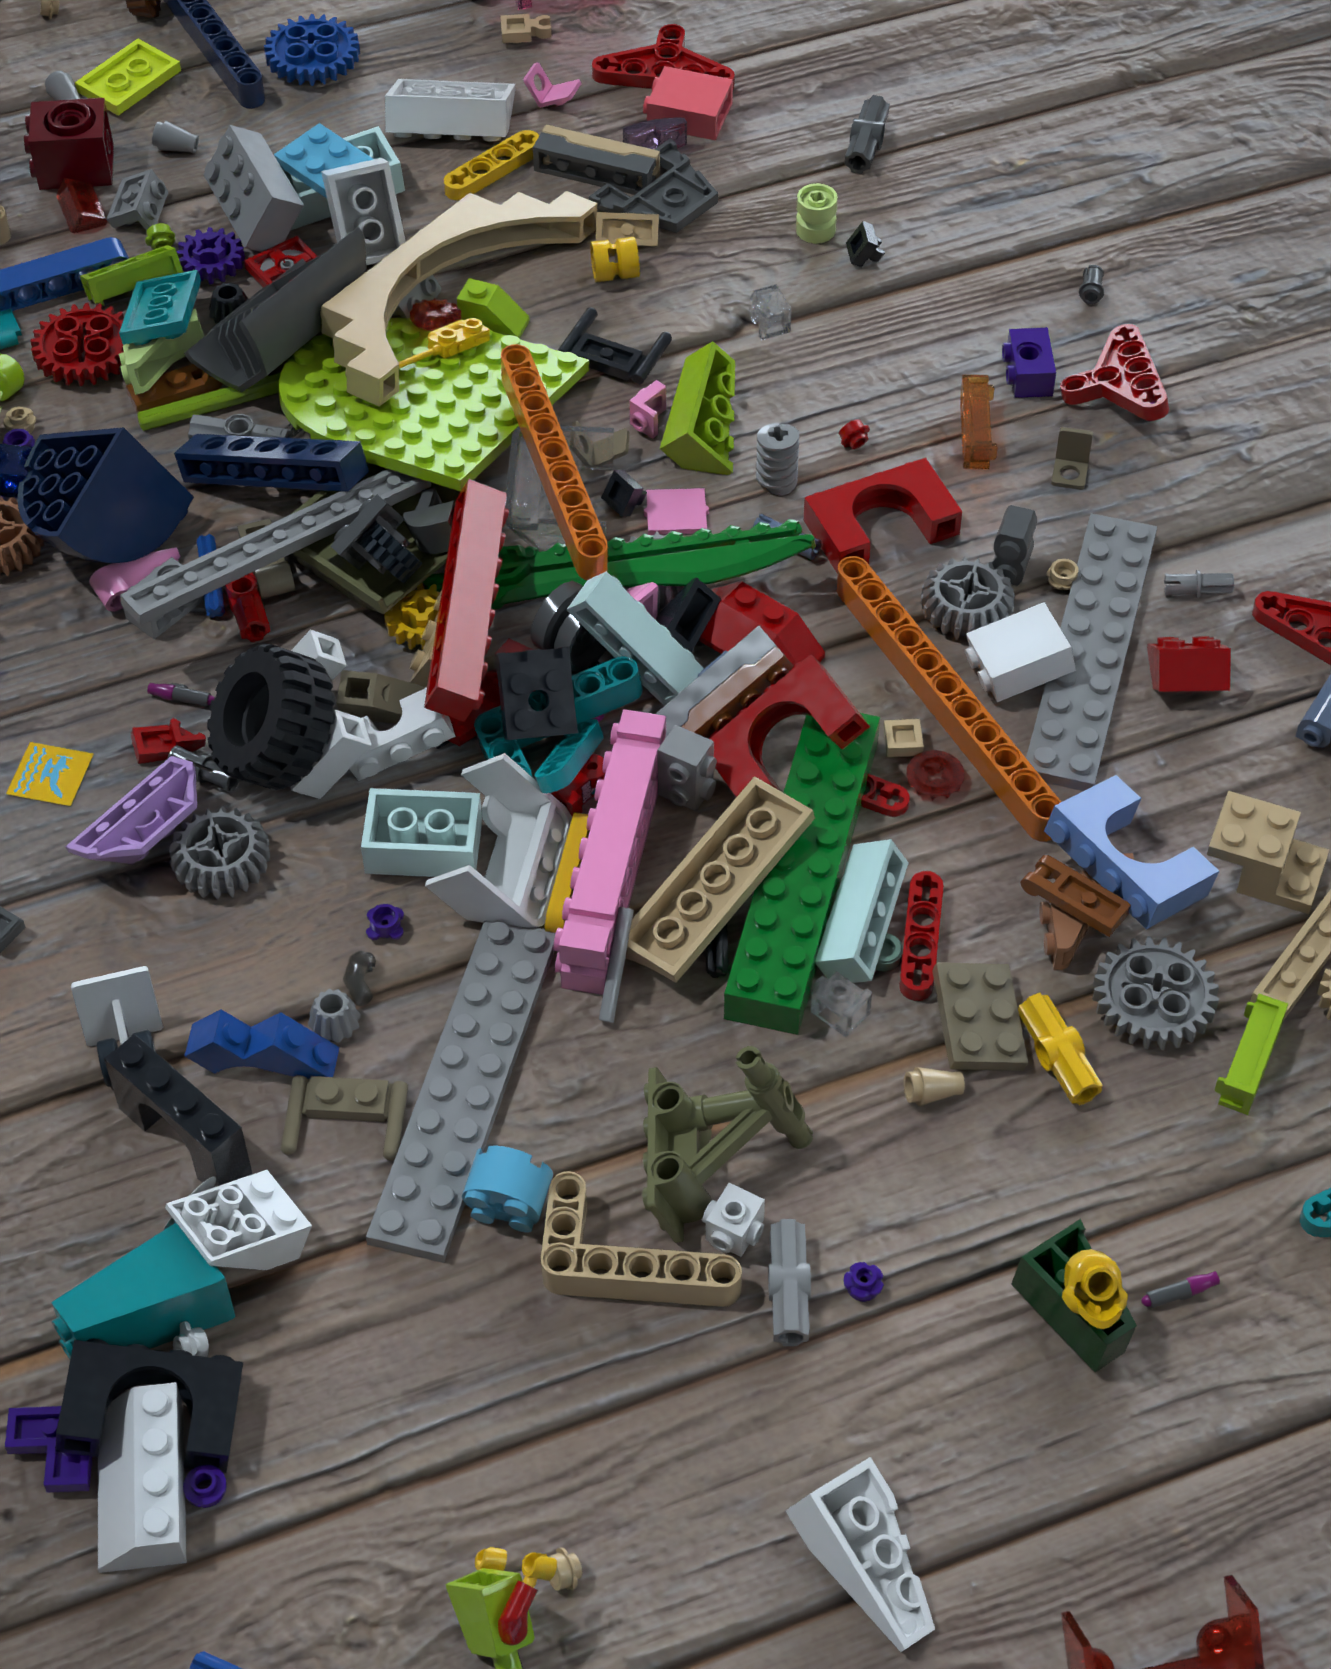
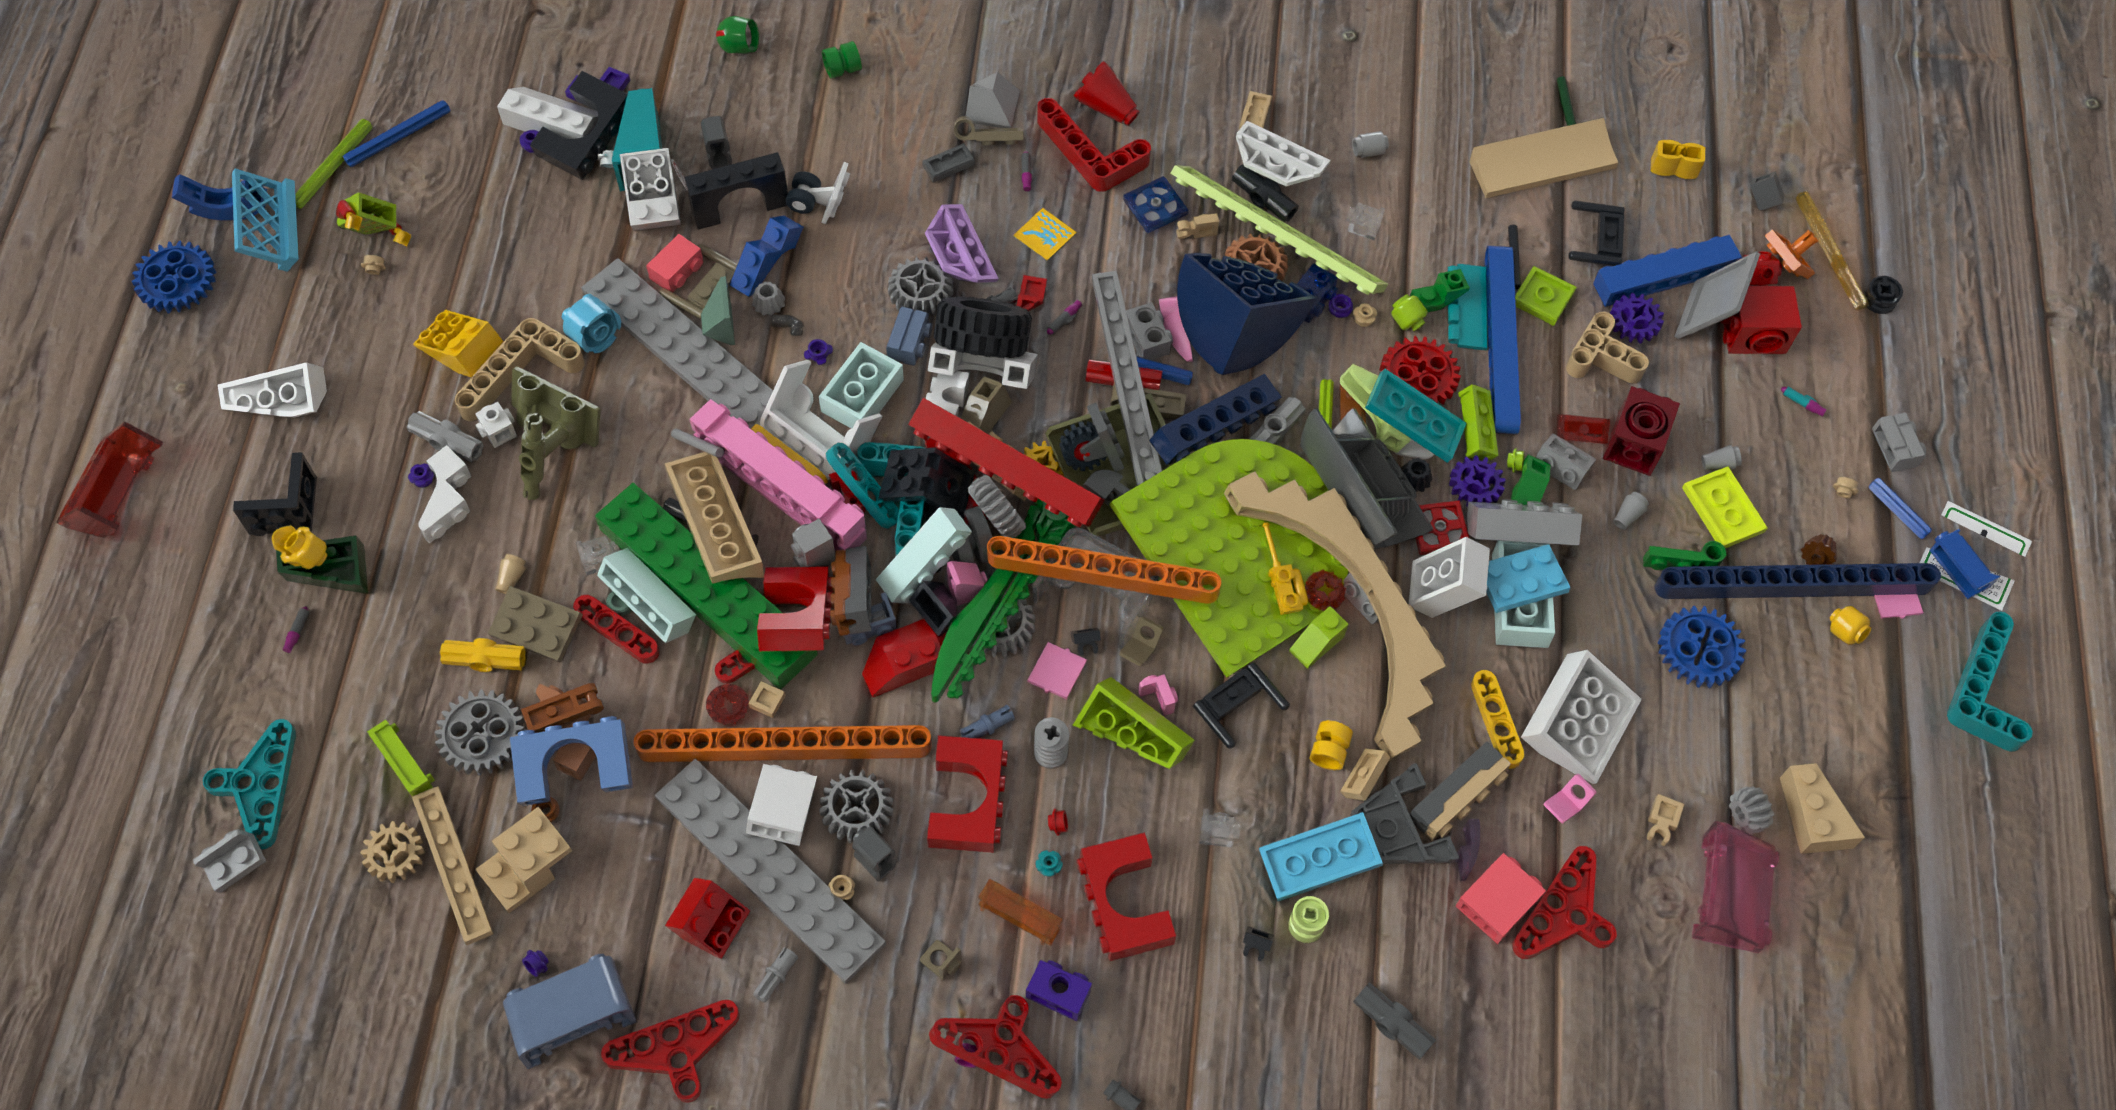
camera: 115 degrees right, 10 degrees up
(96, 1198) = (716, 142): none -> dark grey brick
(201, 209) = (1533, 481): none -> green slope
(203, 74) = (1662, 558): none -> green plate
(307, 830) = (908, 336): none -> sand blue brick
(337, 1154) = (675, 263): none -> coral brick
(397, 1038) = (717, 315): none -> sand green slope
(524, 597) = (996, 507): none -> light grey gear
(628, 1364) = (459, 342): none -> yellow slope
(744, 226) = (1320, 856): none -> medium azure plate
(882, 380) = (1122, 934): none -> red arch
(889, 1216) = (445, 504): none -> white arch
(904, 427) = (1049, 870): none -> teal plate
(1047, 1383) = (268, 515): none -> black bracket

